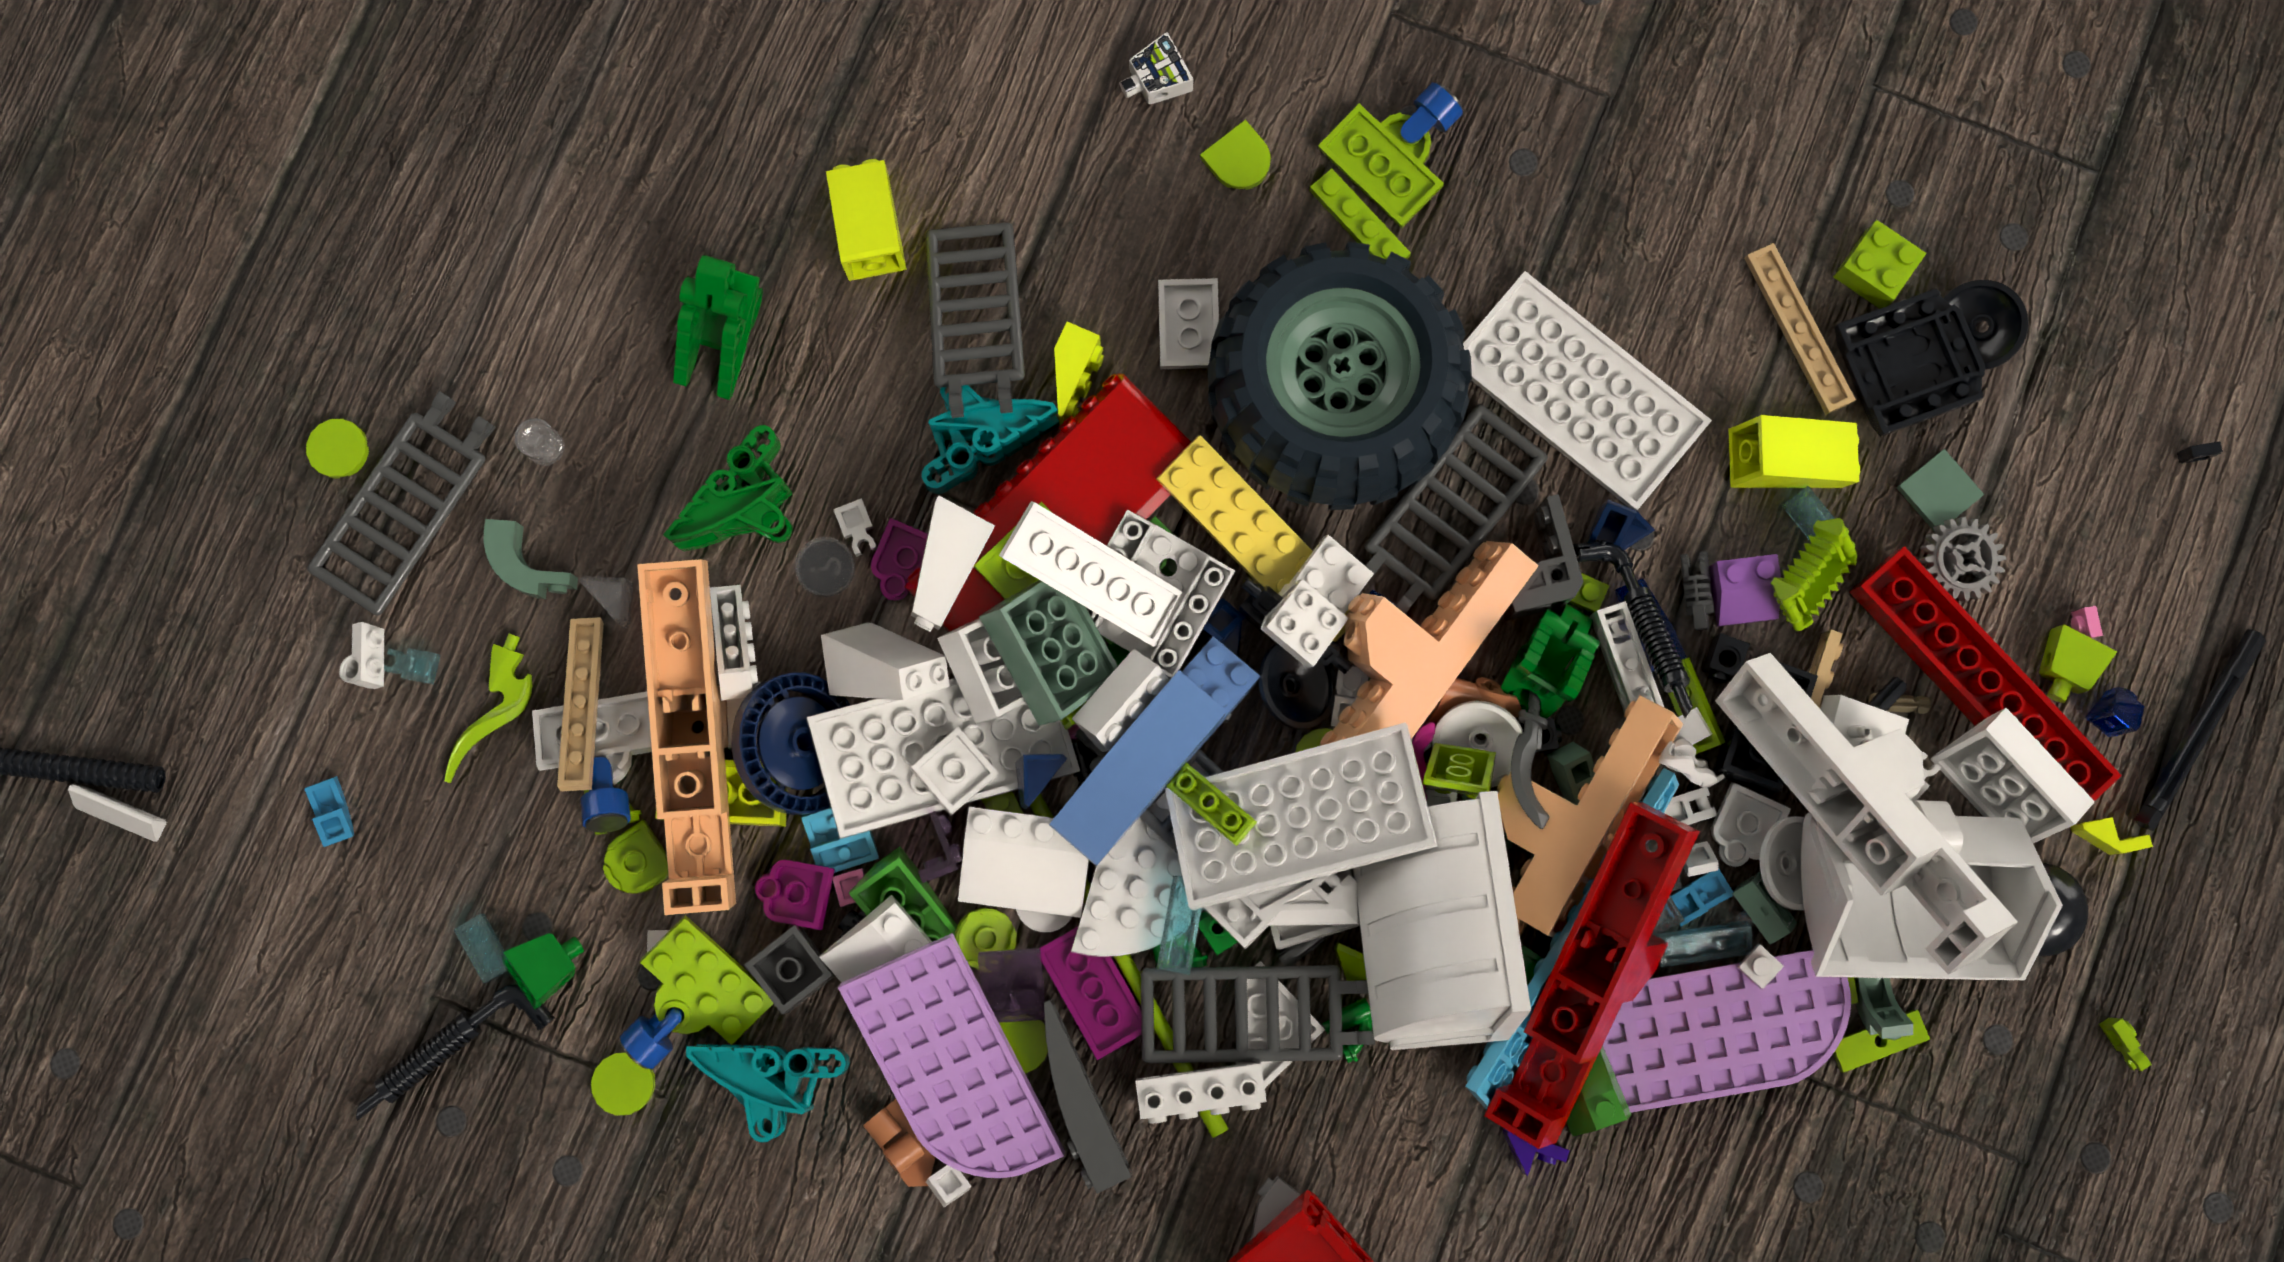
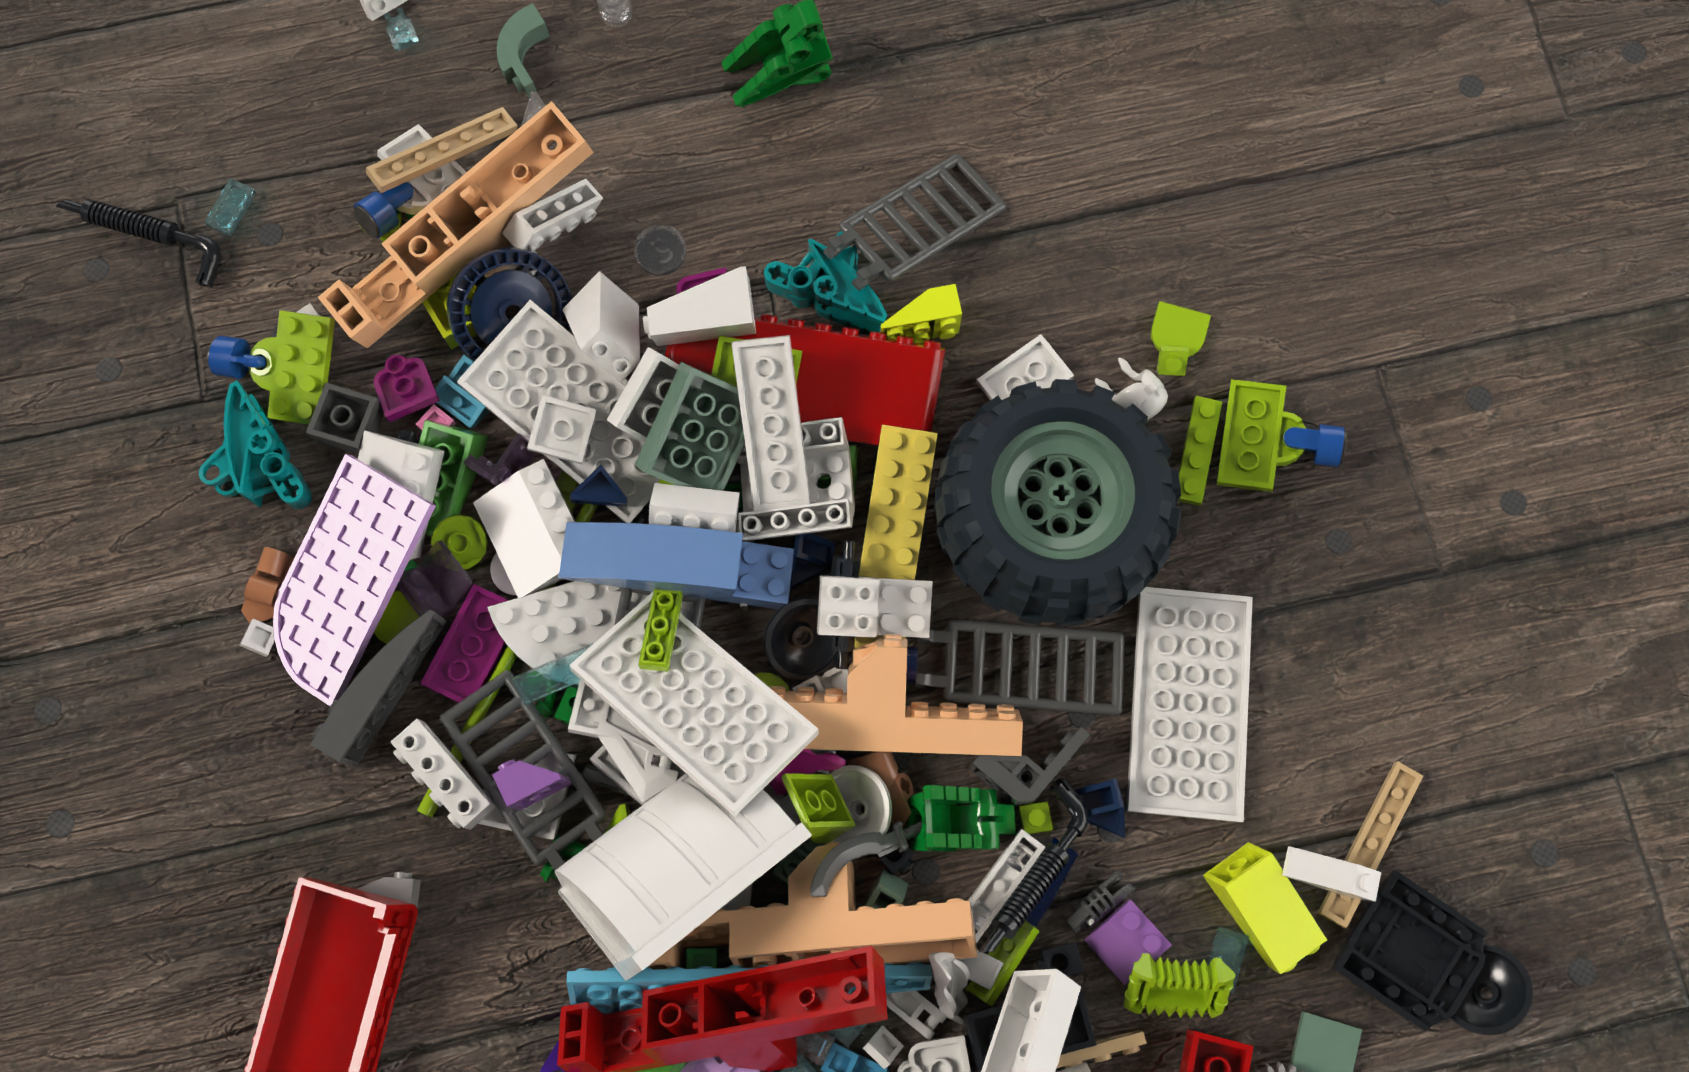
camera: 55 degrees right, 5 degrees down
(330, 811) = (264, 48): dark azure slope -> none
(516, 697) = (423, 110): lime piece -> none
(542, 966) = (239, 252): green torso -> none
(622, 1085) = (188, 364): lime tile -> none
(635, 860) = (356, 261): lime tile -> none
(729, 511) = (661, 160): green piece -> none
(854, 523) = (705, 247): white plate -> none
(865, 220) = (931, 105): neon yellow slope -> none
(1158, 72) = (1197, 229): torso -> none
(1264, 183) = (1172, 360): none -> lime plate
(1268, 1015) = (527, 784): none -> medium lavender slope
(1284, 236) = (1147, 396): none -> white hair
(1809, 378) = (1332, 874): none -> white slope
(1879, 265) = (1471, 873): lime brick -> none

